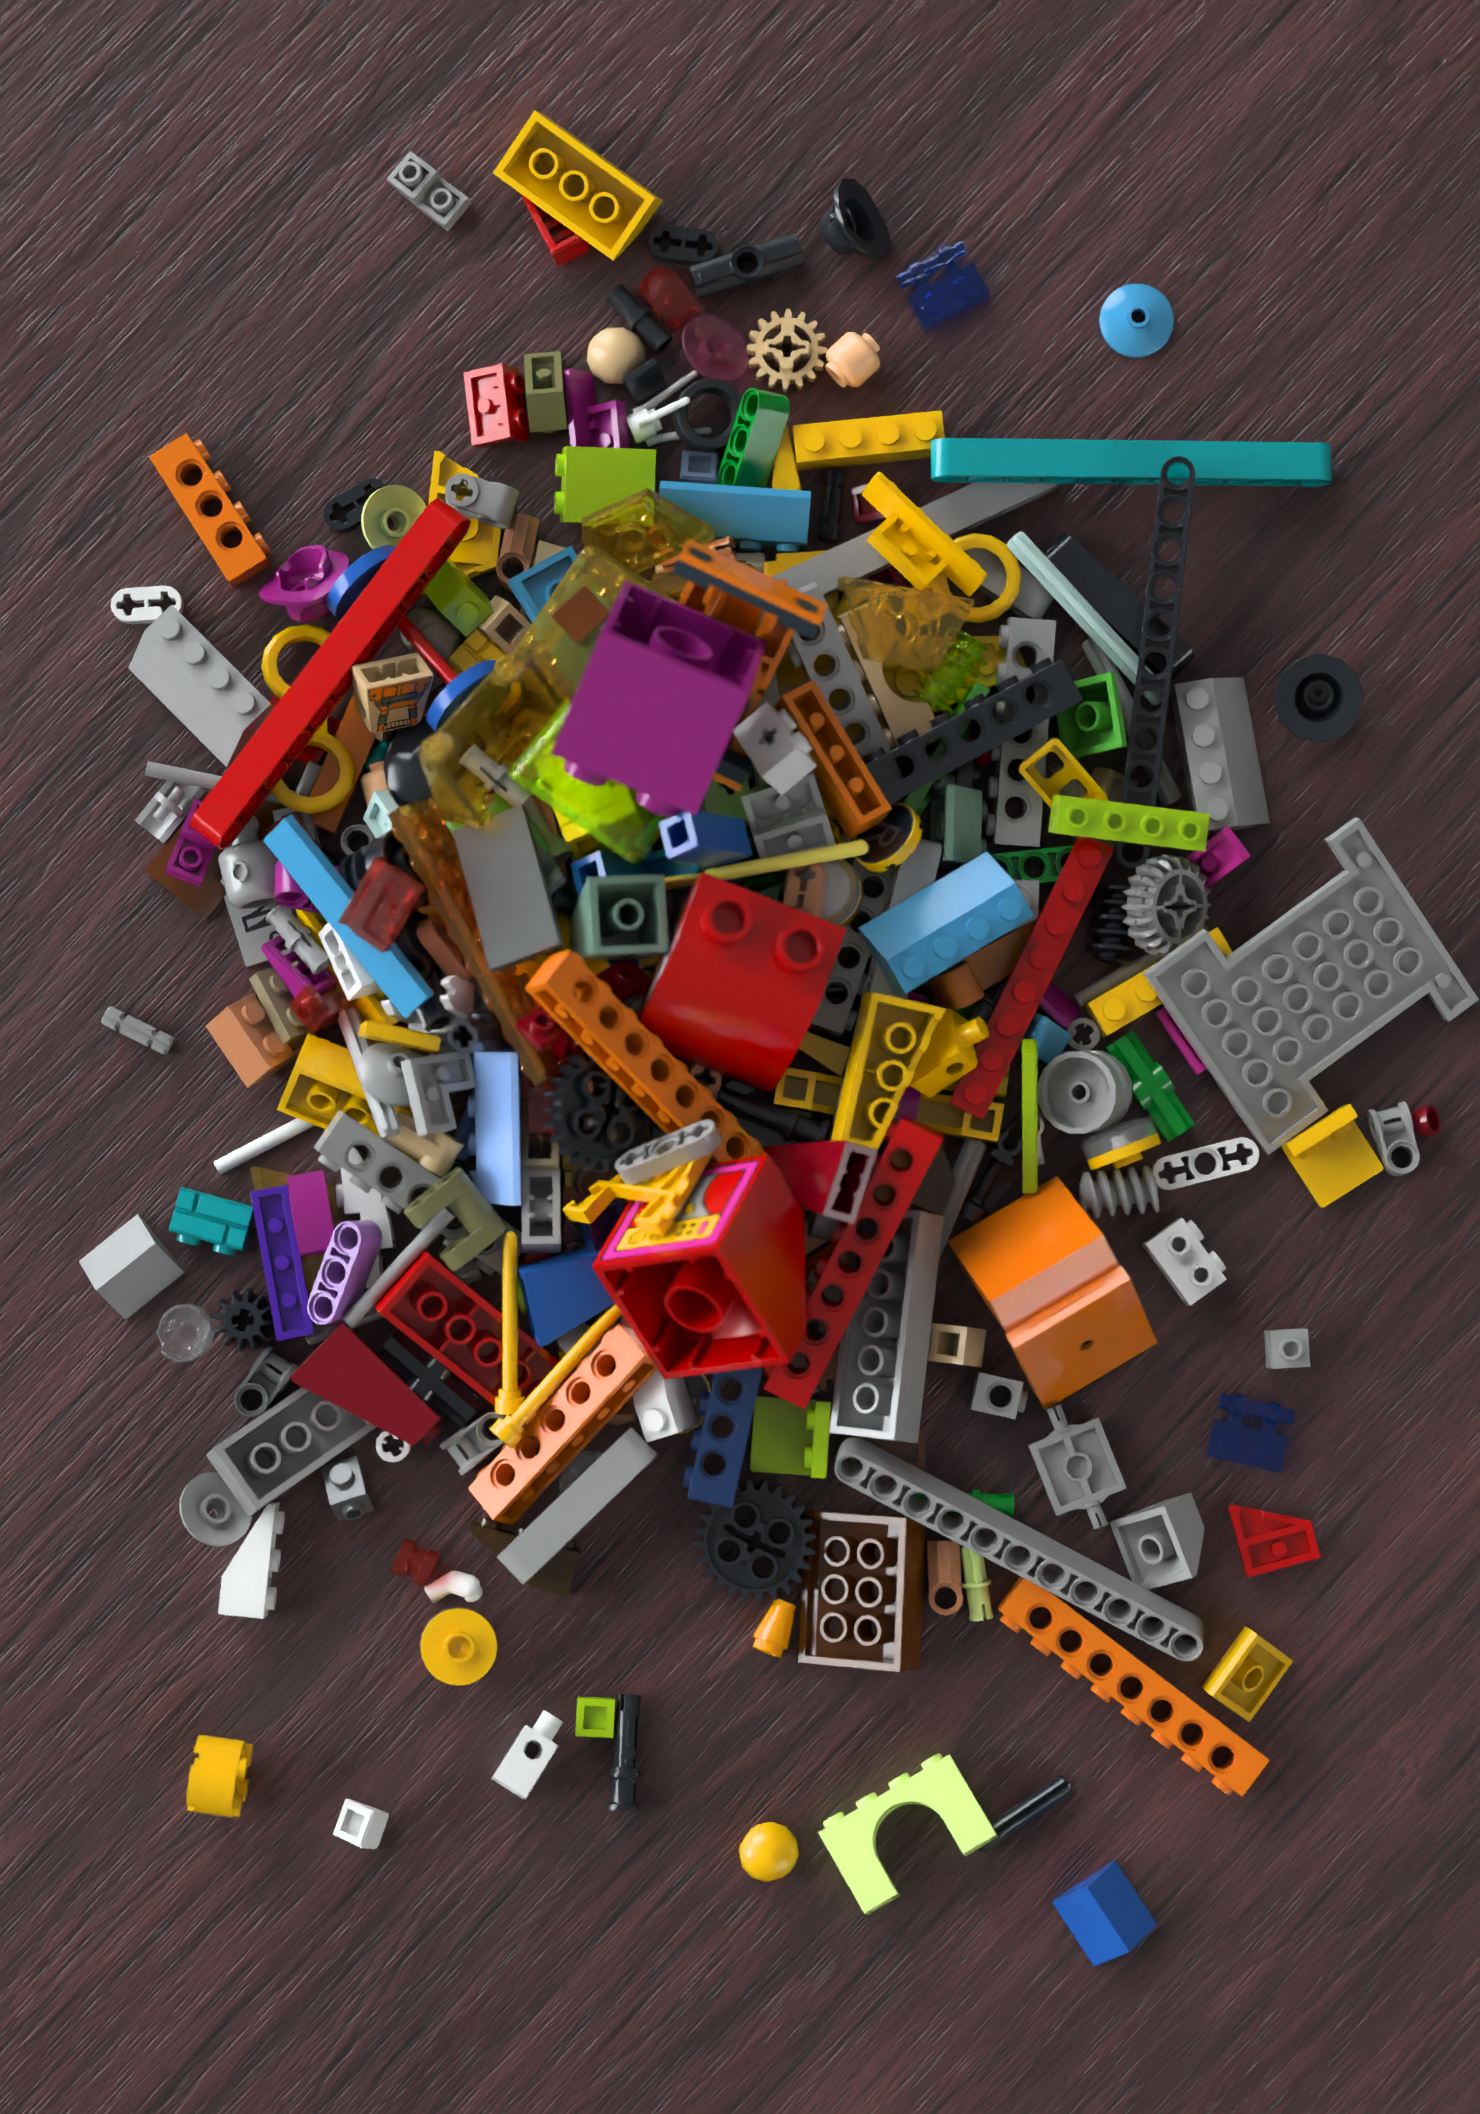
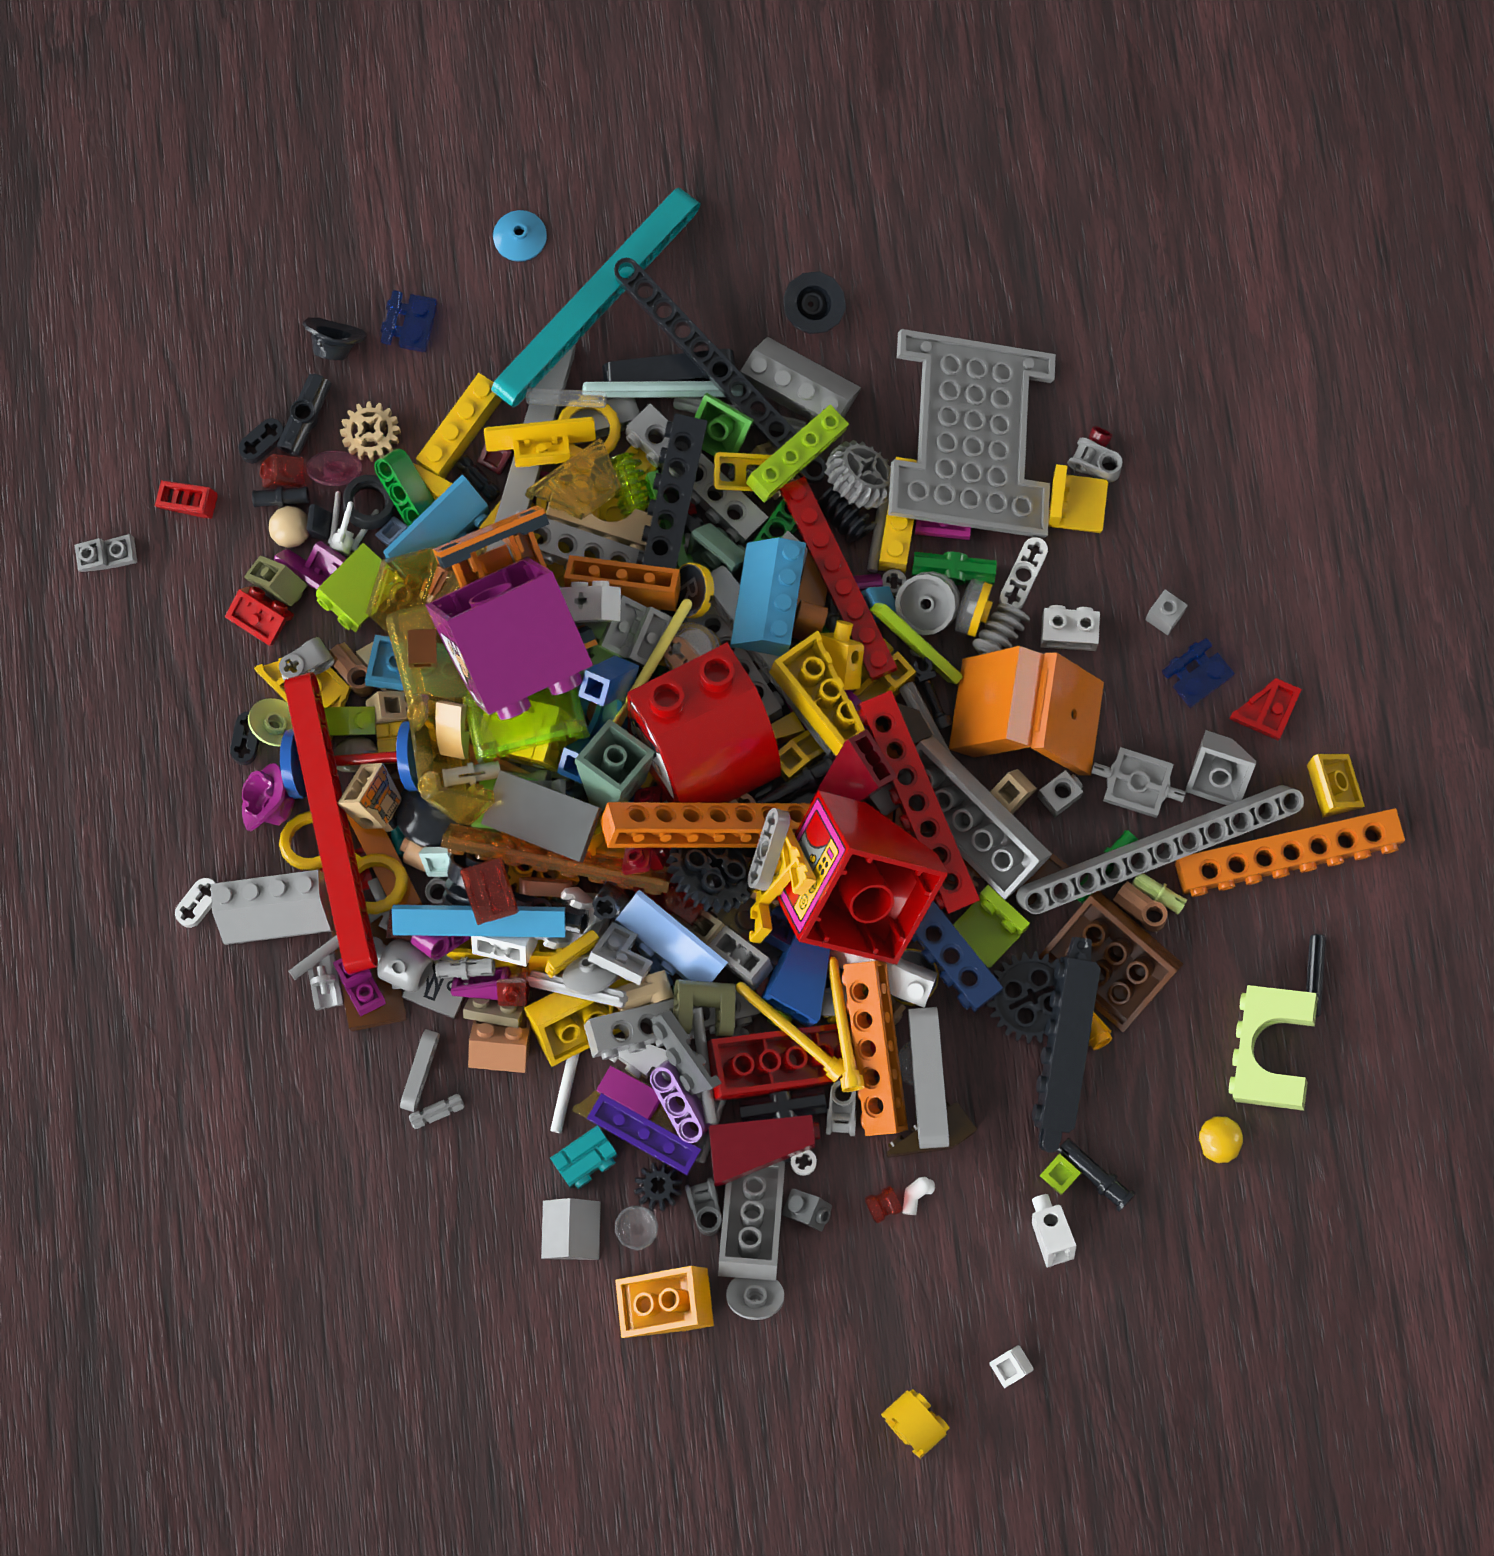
camera: 45 degrees left, 10 degrees down
(135, 1423) = (664, 1302): none -> light orange slope
(163, 978) = (419, 1070): none -> light grey beam
(173, 464) = (217, 833): orange brick -> none
(248, 1578) = (811, 1310): white slope -> none
(382, 1254) = (687, 1062): none -> dark grey wing
(458, 1646) = (953, 1219): yellow piece -> none
(522, 716) = (450, 729): none -> tan slope
(577, 186) = (177, 467): yellow slope -> none
(731, 1618) = (1066, 1044): none -> black hinge
(852, 359) = (407, 399): light nougat head -> none
(988, 527) = (566, 398): none -> clear axle
(1105, 1914) = (1411, 976): blue slope -> none
(1220, 857) = (859, 424): dark pink slope -> none

